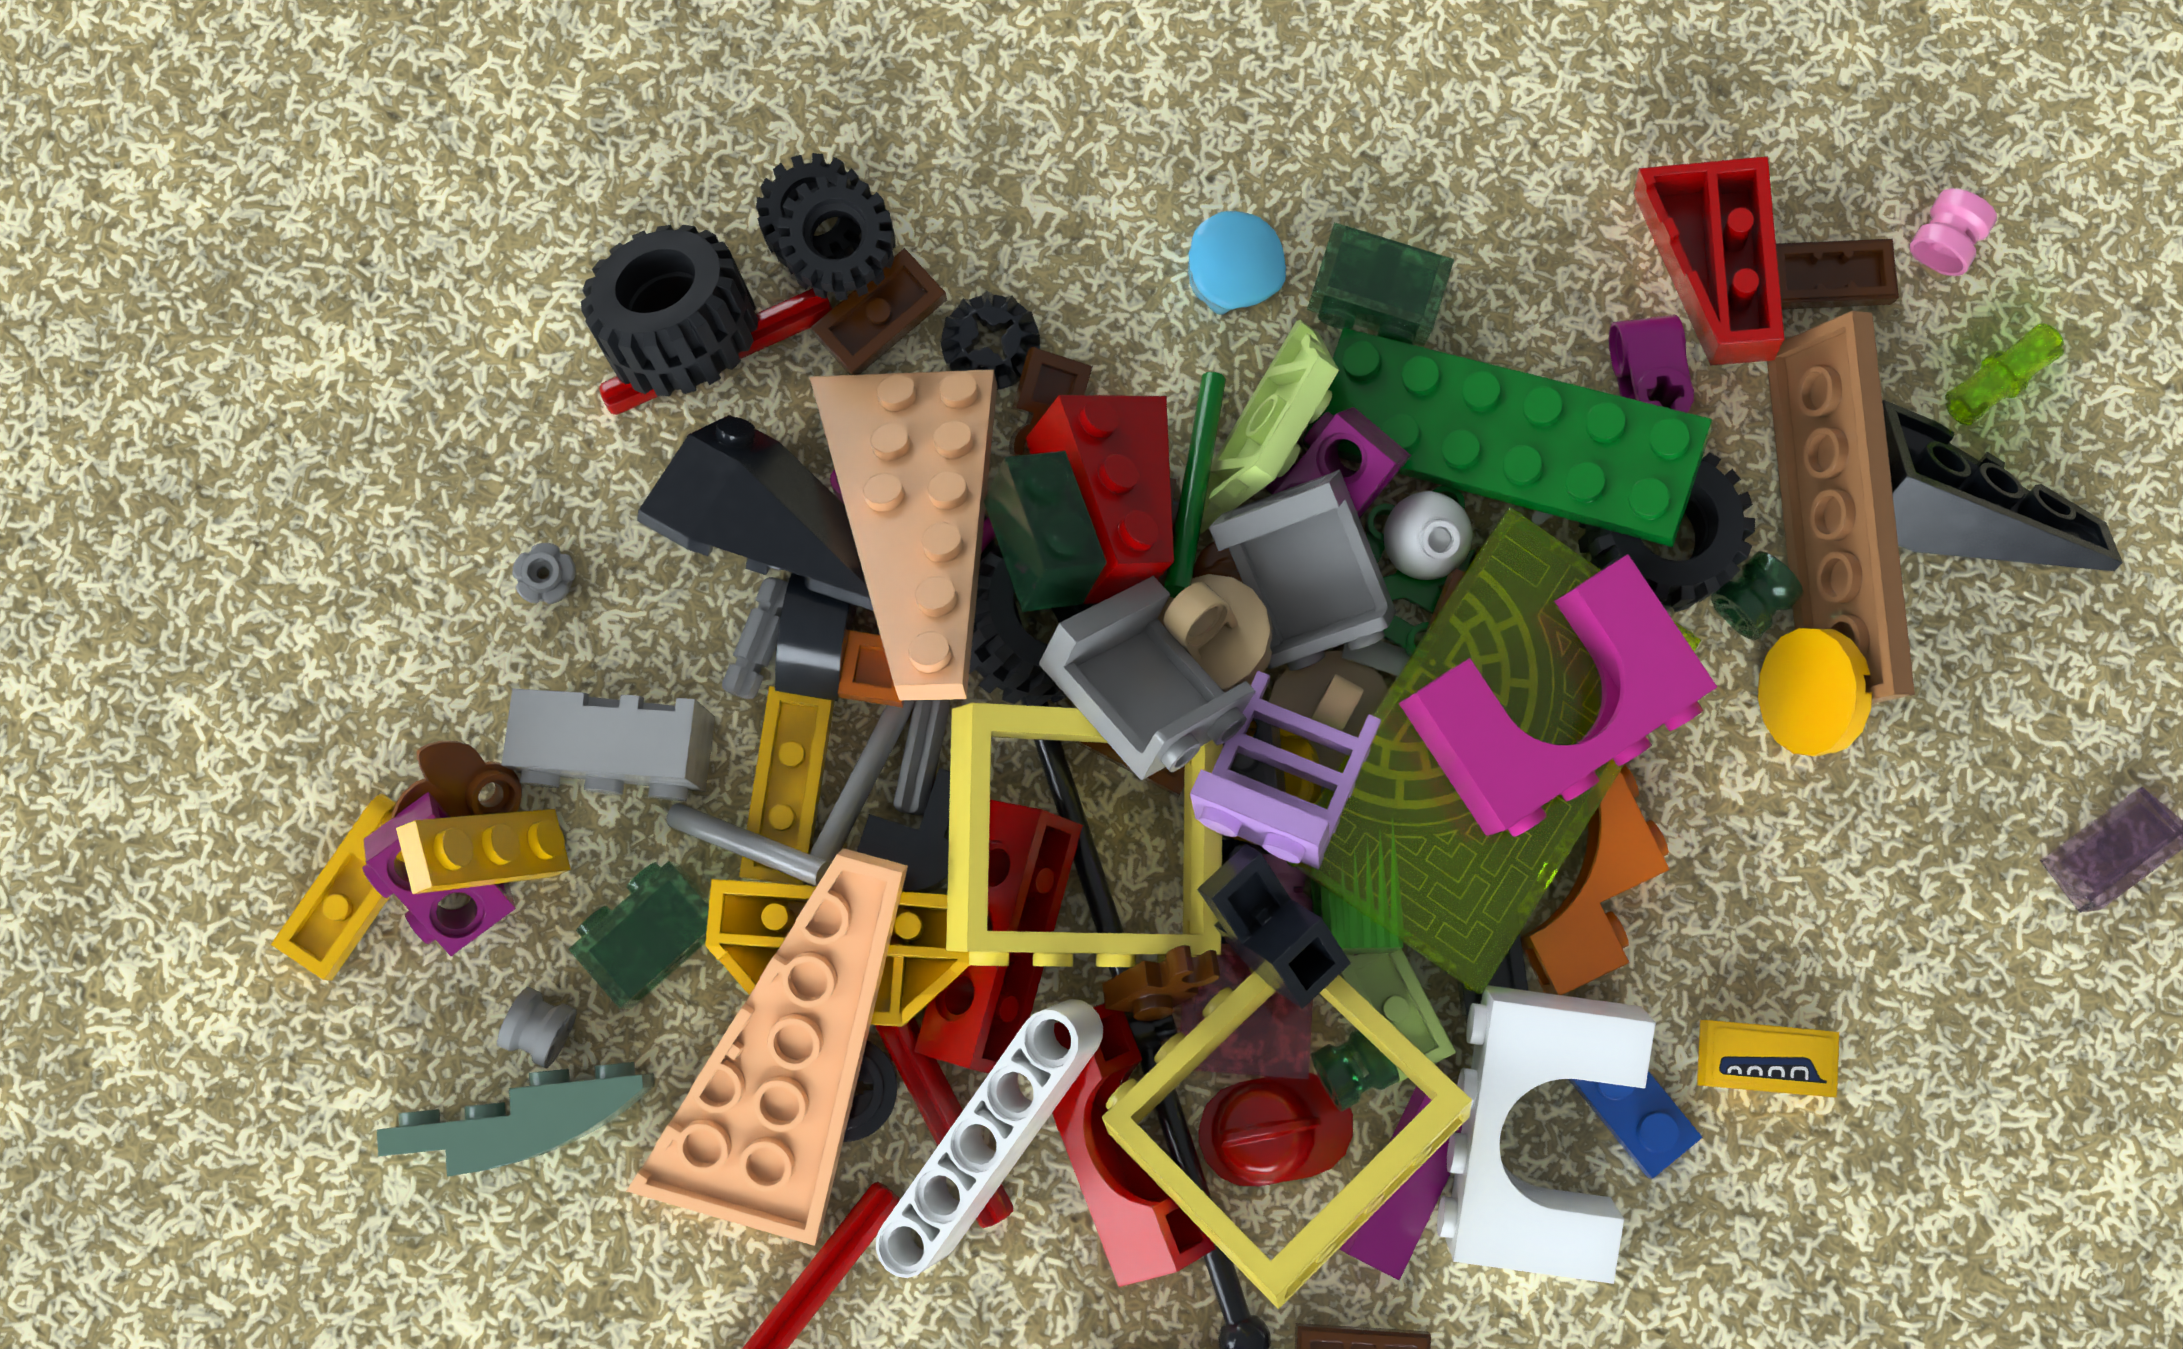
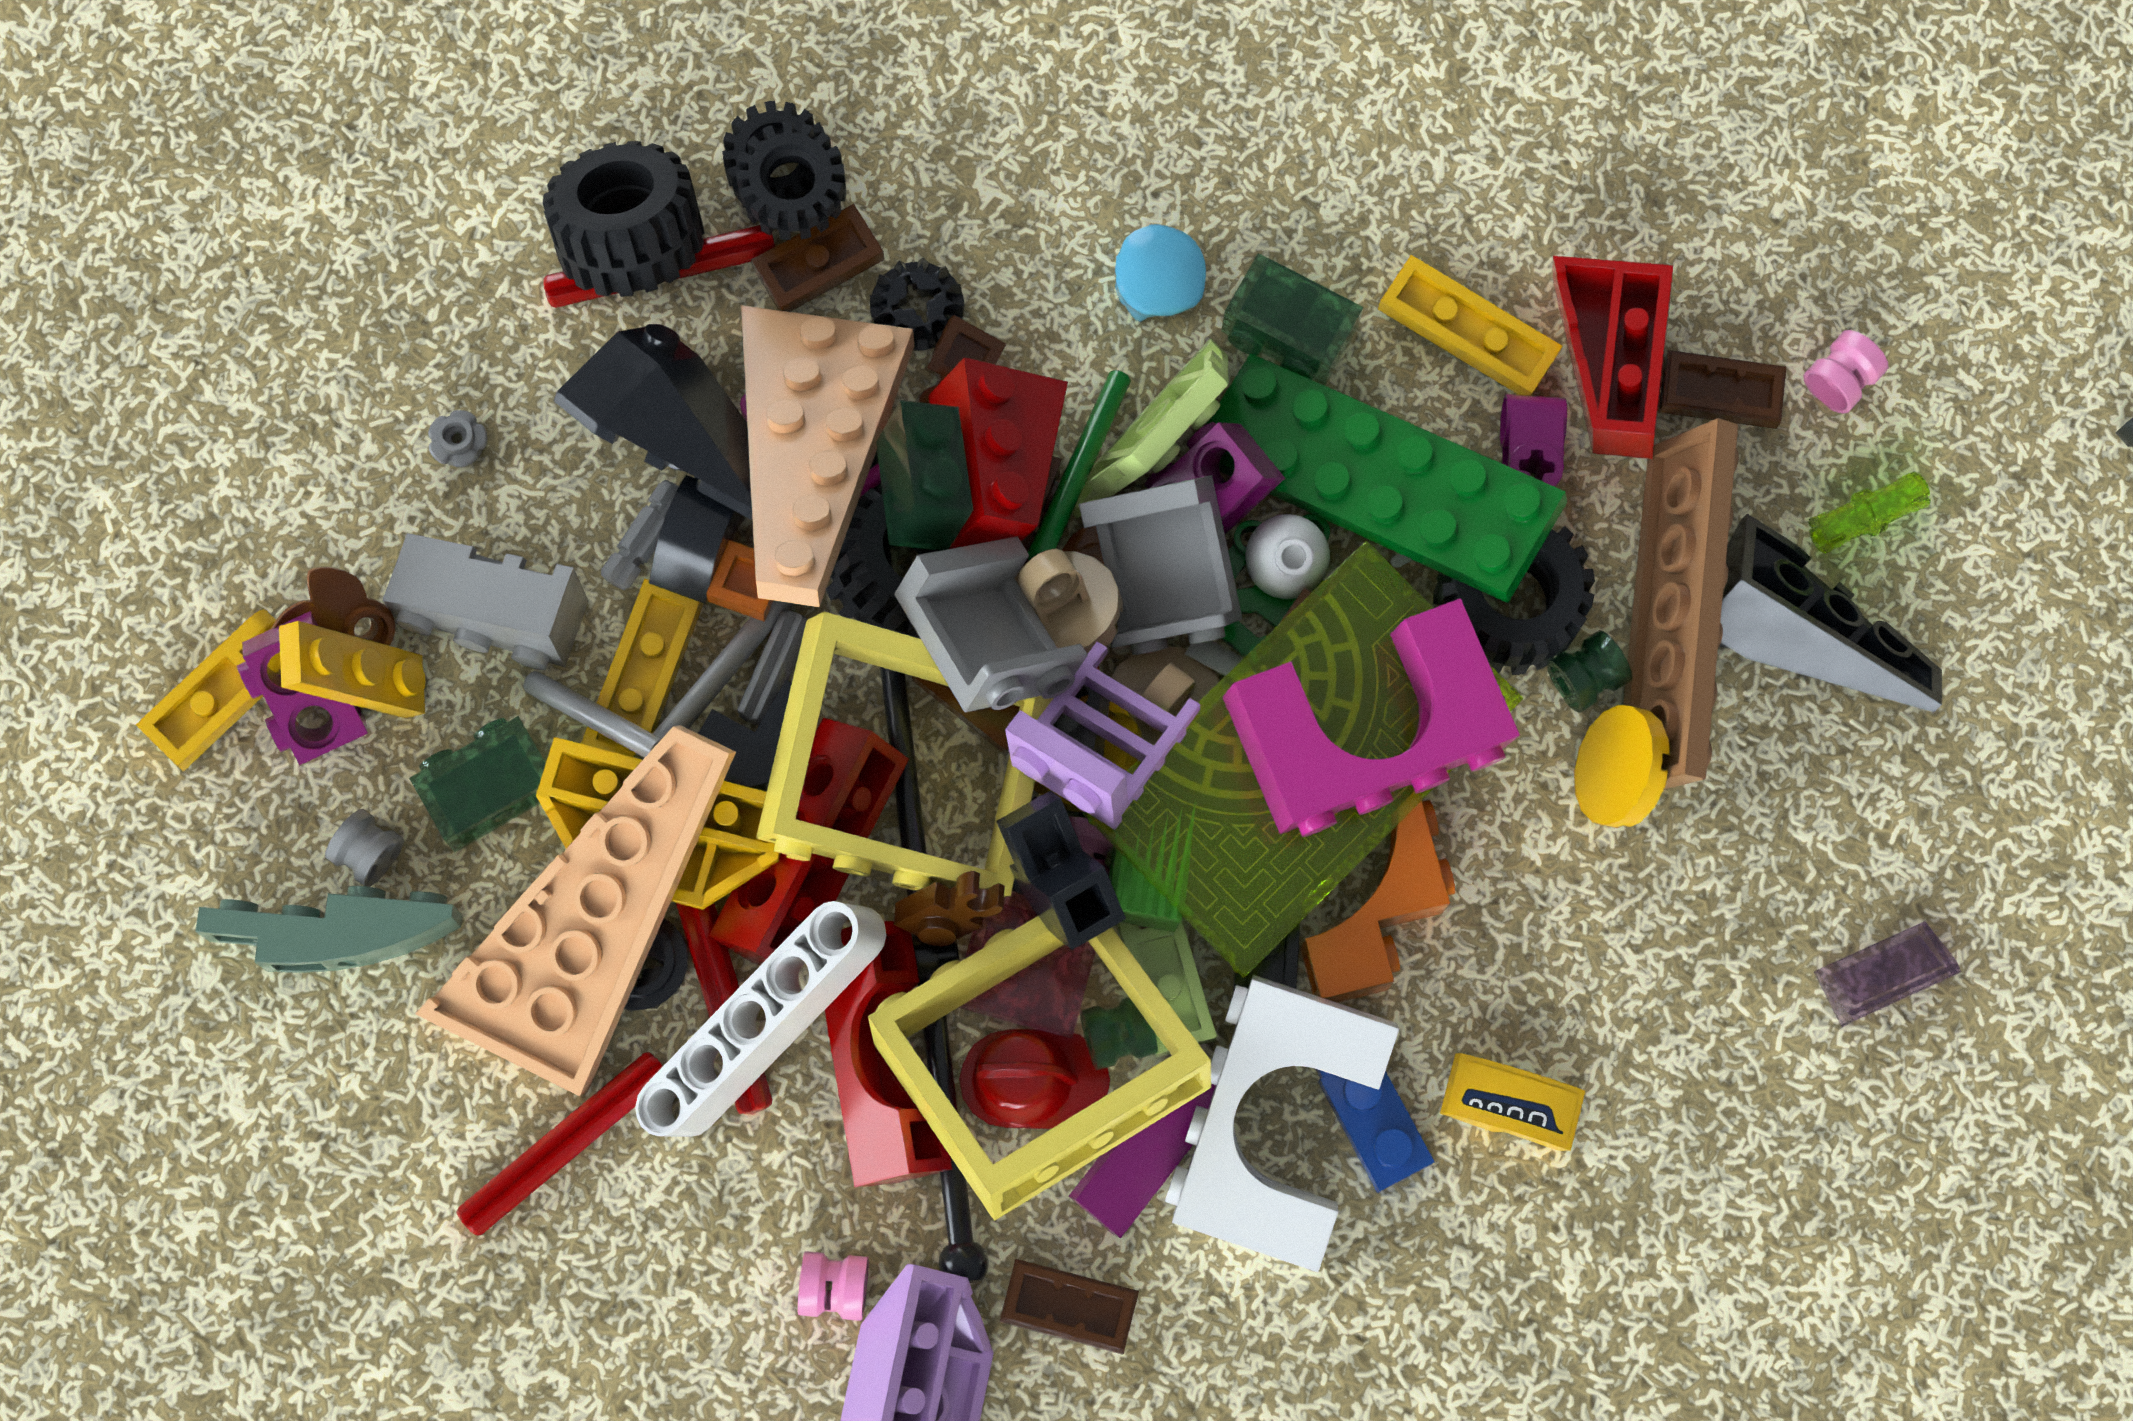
camera: 10 degrees right, 5 degrees down
(1562, 258) = (1469, 327): none -> yellow plate

